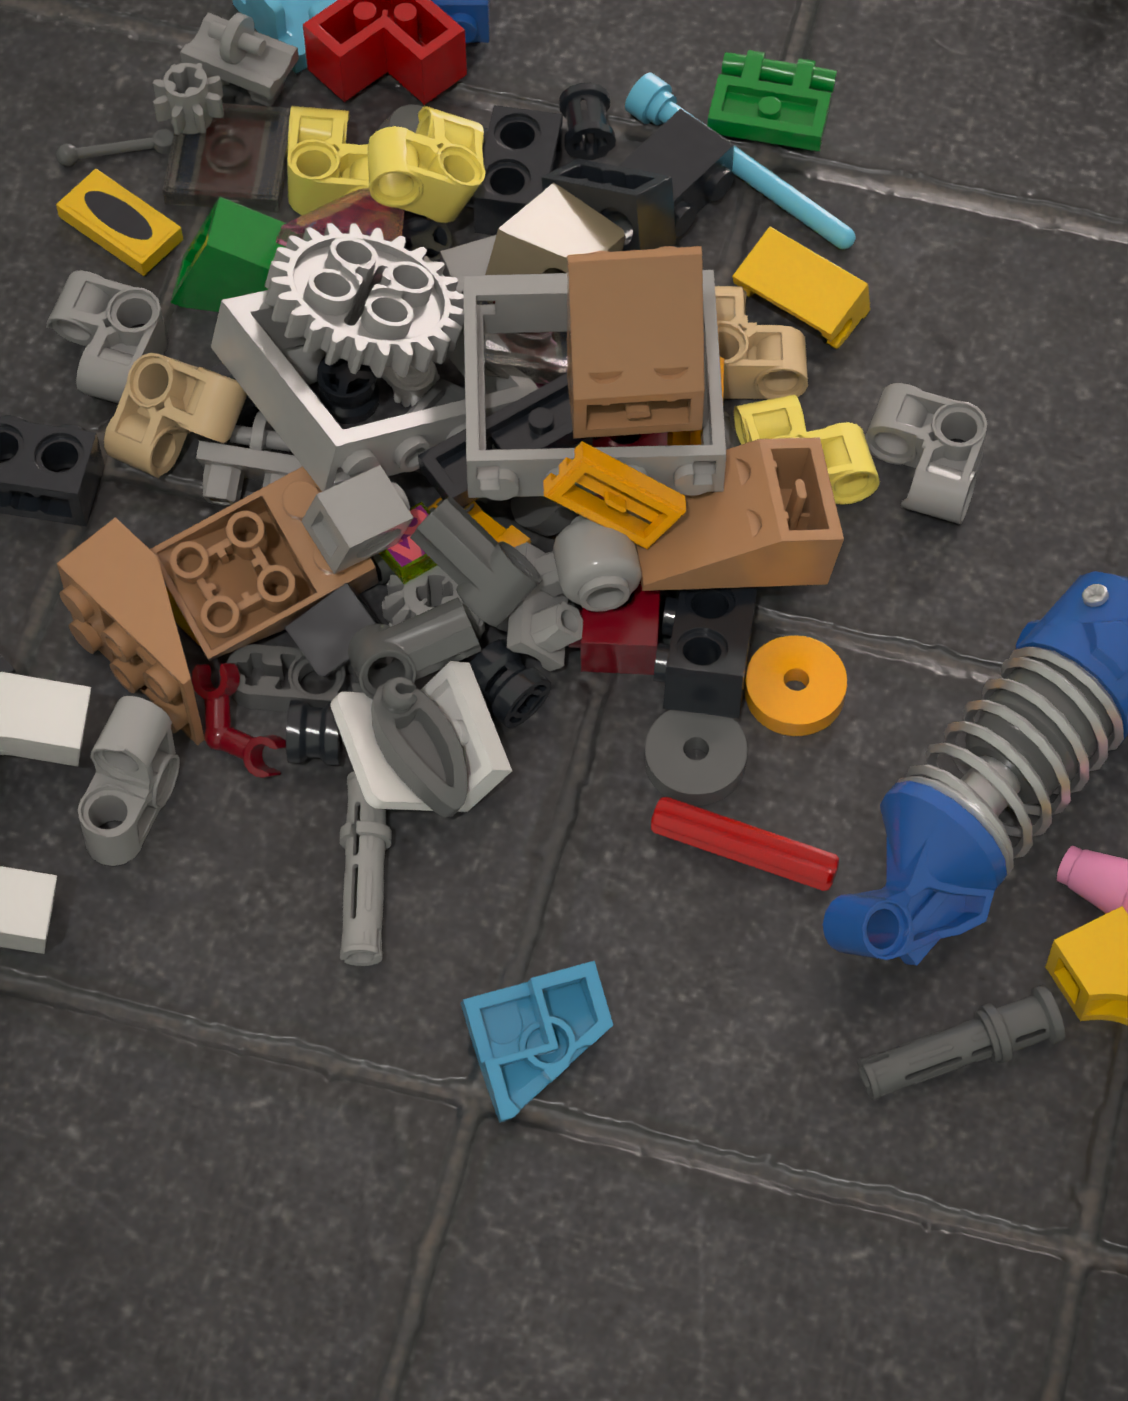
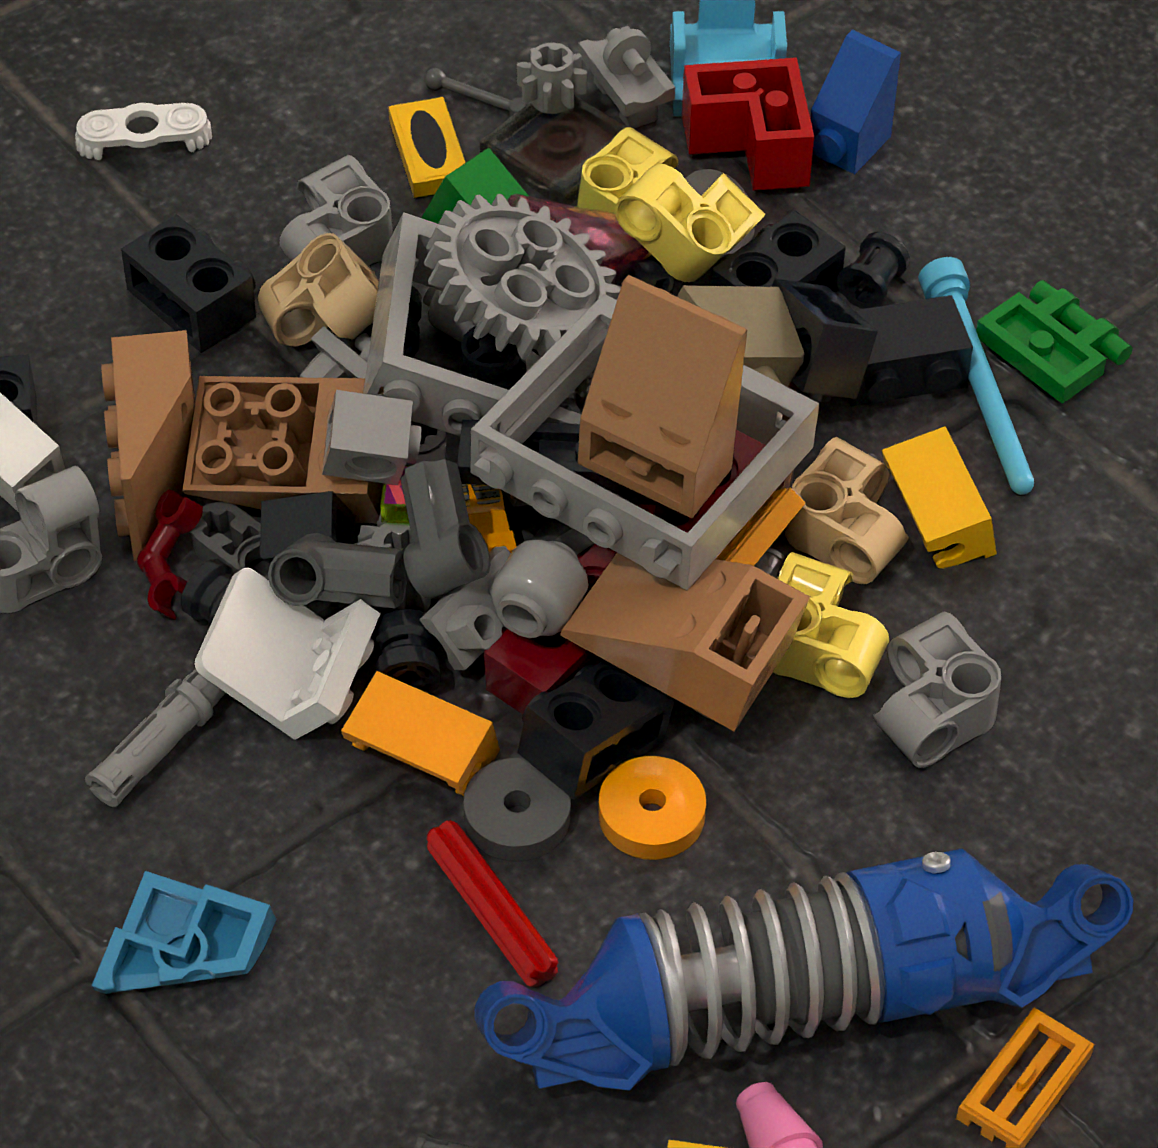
camera: 35 degrees right, 10 degrees down
(420, 745) = (279, 650): dark grey arm -> none
(578, 740) = (421, 731): none -> light orange hinge
(622, 490) = (577, 530): light orange tile -> none

